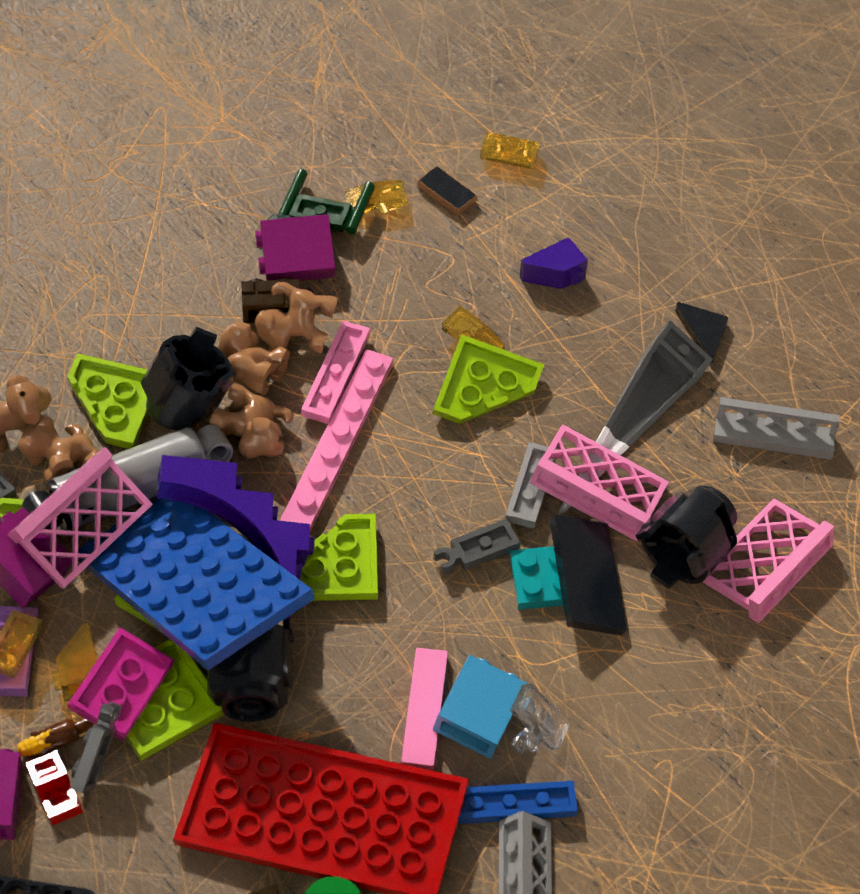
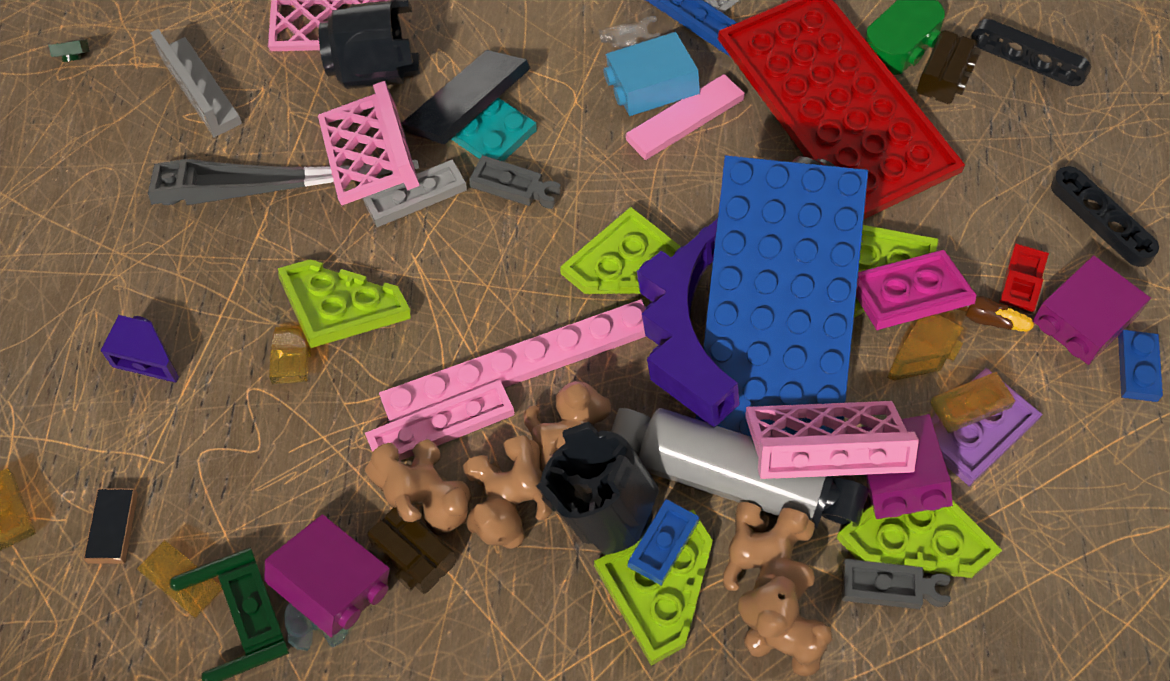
camera: 130 degrees left, 5 degrees up
(96, 744) = (979, 252): dark grey plate -> none
(128, 403) = (663, 542): none -> blue plate
(703, 326) = (118, 199): black tile -> none

